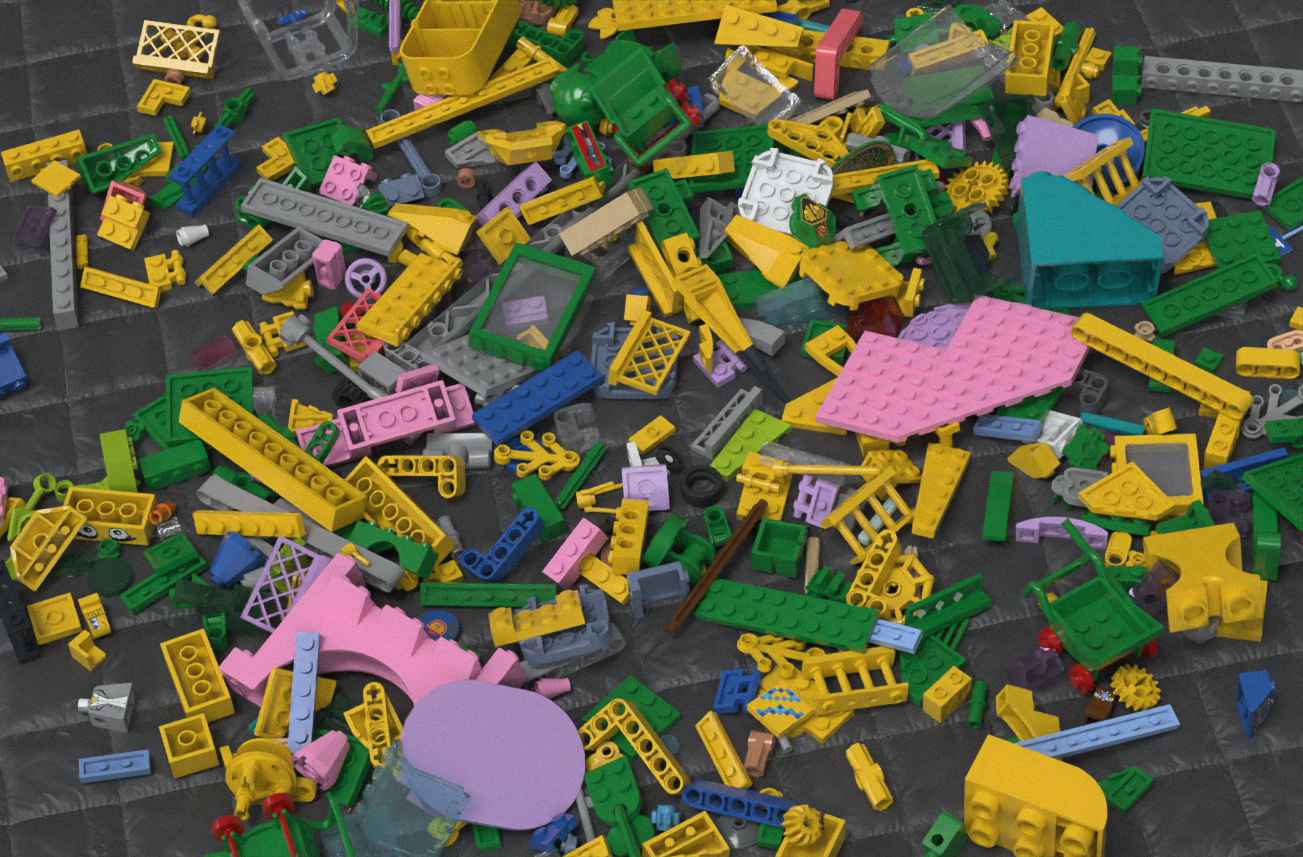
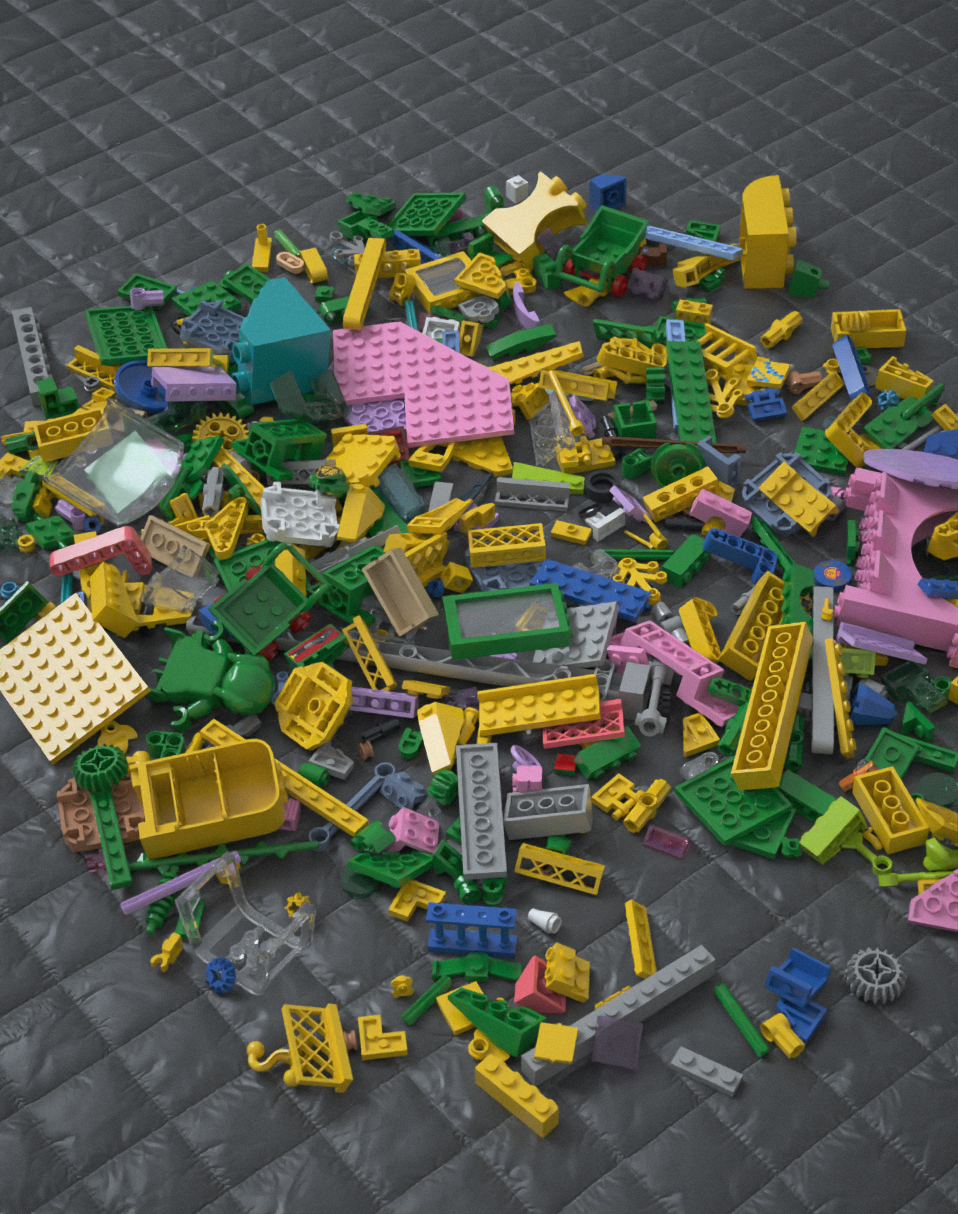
camera: 120 degrees left, 5 degrees down
(158, 268) = (602, 927): yellow plate -> none
(235, 109) = (371, 971): green axle -> none

